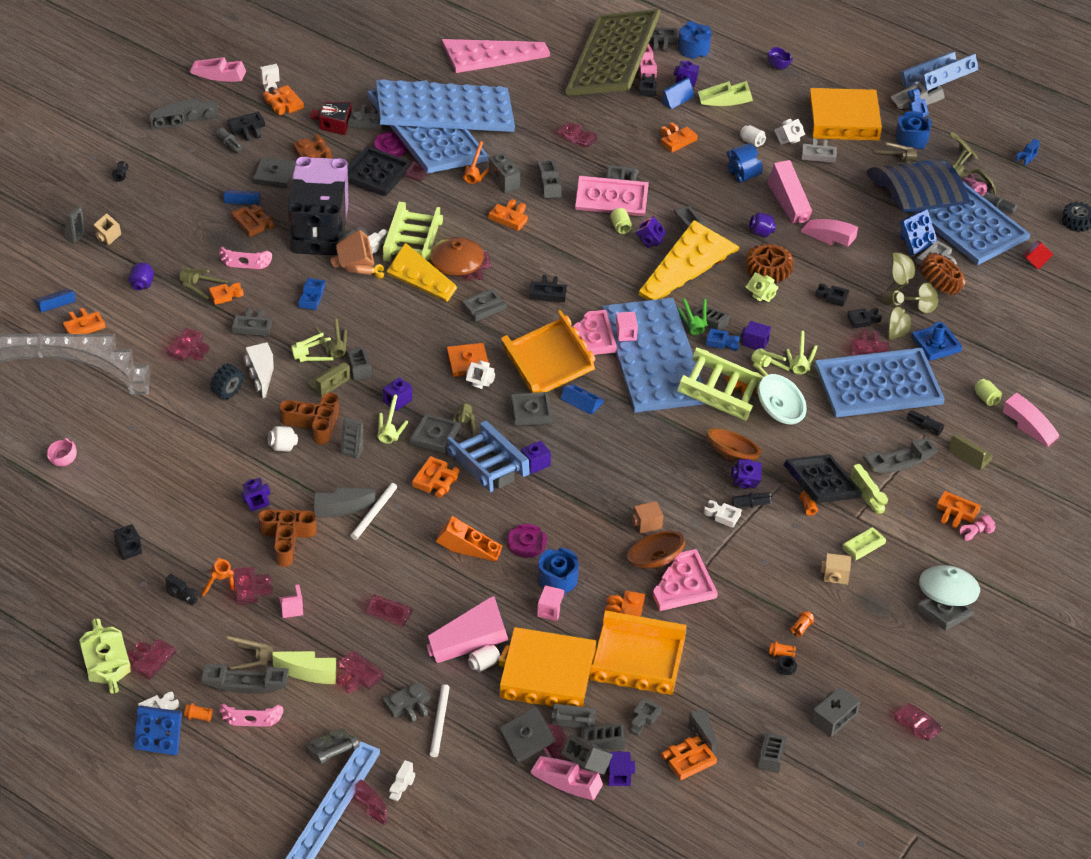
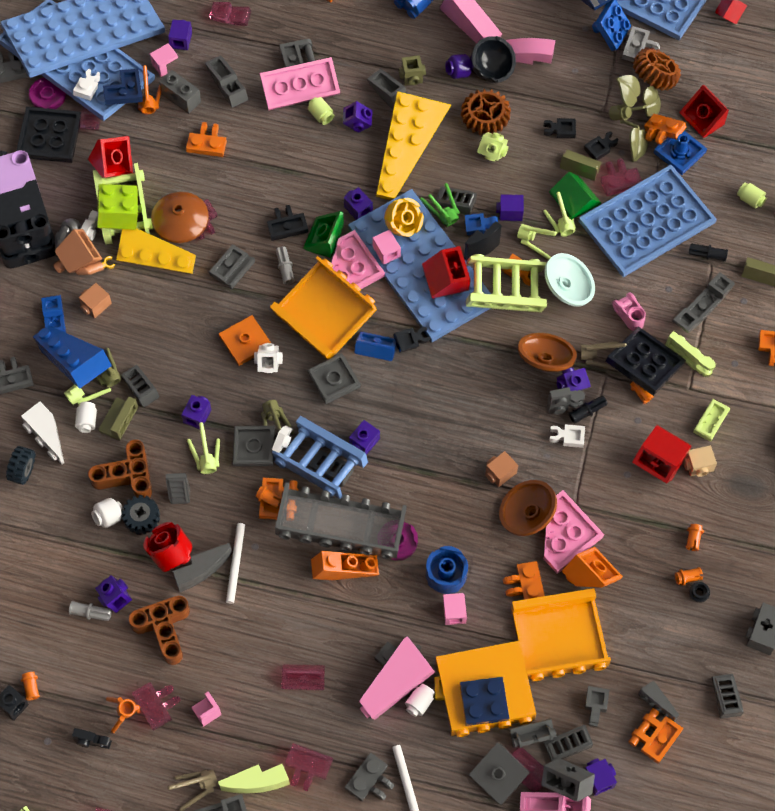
camera: 20 degrees left, 20 degrees up
(151, 534) = (30, 686): none -> orange pin
(229, 503) = (90, 611): none -> light grey axle
(300, 368) = (86, 417): none -> white brick
(310, 450) = (146, 519): none -> black wheel
(311, 316) = (71, 355): none -> blue wedge
(320, 473) = (168, 546): none -> red brick
(352, 292) = (94, 300): none -> nougat brick
(405, 227) = (117, 206): none -> lime brick
(420, 195) = (112, 157): none -> red slope
(423, 464) = (268, 497): none -> orange pin
(425, 144) = (87, 87): none -> white plate
(459, 156) = (127, 92): none -> dark blue plate
(461, 431) = (282, 439): none -> white plate
(480, 507) = (340, 522): none -> window
(501, 144) = (162, 57): none -> bright pink panel
(525, 134) = (180, 34): none -> dark purple brick
(531, 317) = (285, 265): none -> light grey axle
(540, 671) = (484, 701): none -> dark blue plate
(580, 305) = (325, 234): none -> green slope
(613, 401) = (409, 340): none -> black plate
(618, 292) = (357, 203): none -> dark purple brick
(652, 307) = (403, 217): none -> yellow cylinder
(670, 358) = (446, 273): none -> red slope
(691, 612) = (591, 570): none -> orange slope
(716, 214) = (412, 70): none -> olive brick
(721, 345) = (483, 243): none -> black slope
(728, 481) = (562, 398): none -> dark grey hinge
(774, 459) = (589, 352): none -> dark tan plant
(793, 225) = (493, 59): none -> black cylinder
(801, 548) = (662, 454): none -> red slope
(819, 343) = (575, 195): none -> green slope
(828, 441) = (628, 309): none -> bright pink piece
(837, 325) = (580, 165): none -> olive panel
(926, 319) = (663, 127): none -> orange hinge
(974, 320) = (705, 112): none -> red slope

